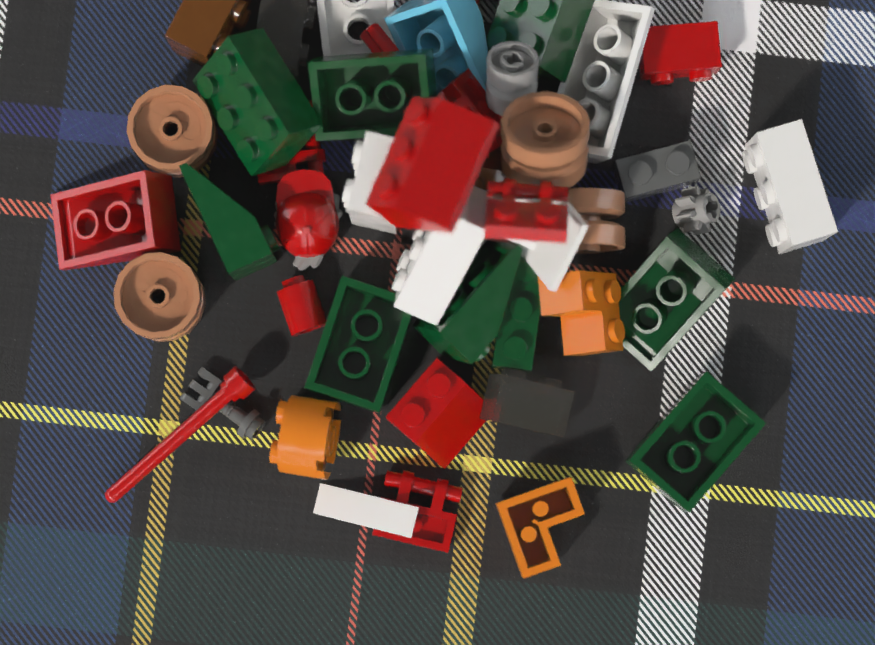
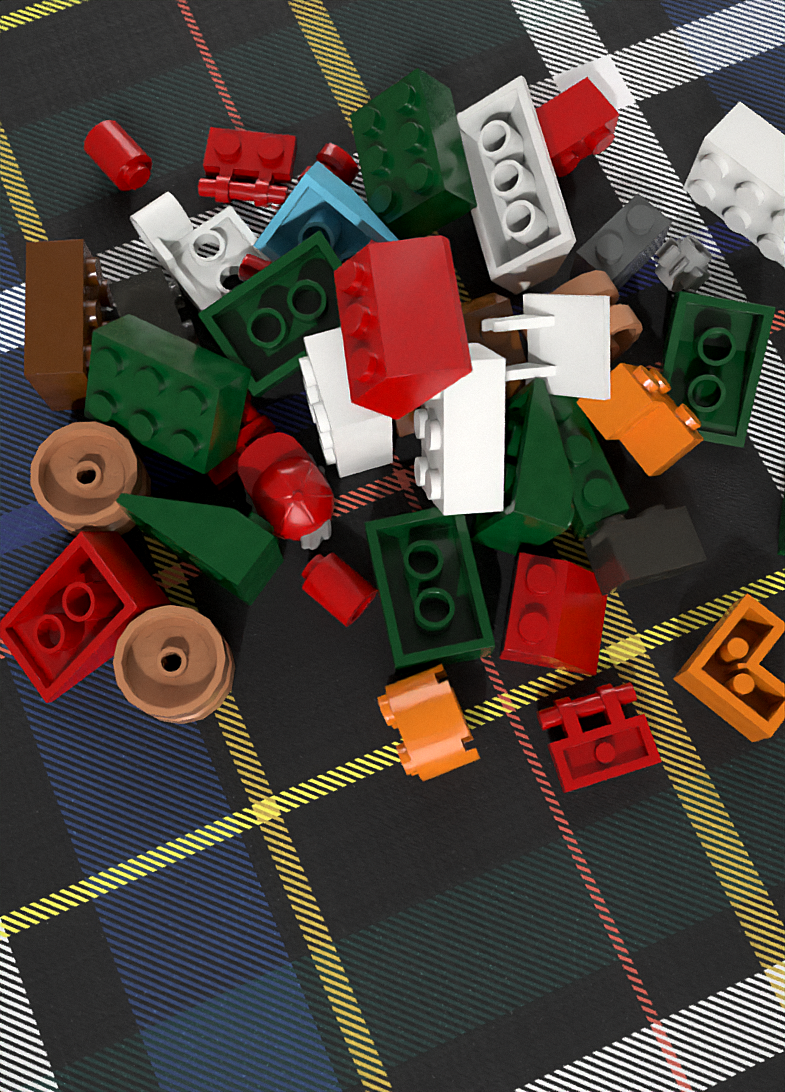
camera: 25 degrees left, 10 degrees down
(235, 386) = (314, 717): red piece -> none
(249, 424) = (355, 749): dark grey hinge -> none
(366, 510) = (543, 768): white sticker -> none
(510, 74) = (422, 207): light grey wheel -> none
(523, 219) = (534, 317): red plate -> none
(545, 139) = (502, 252): nougat wheel -> none

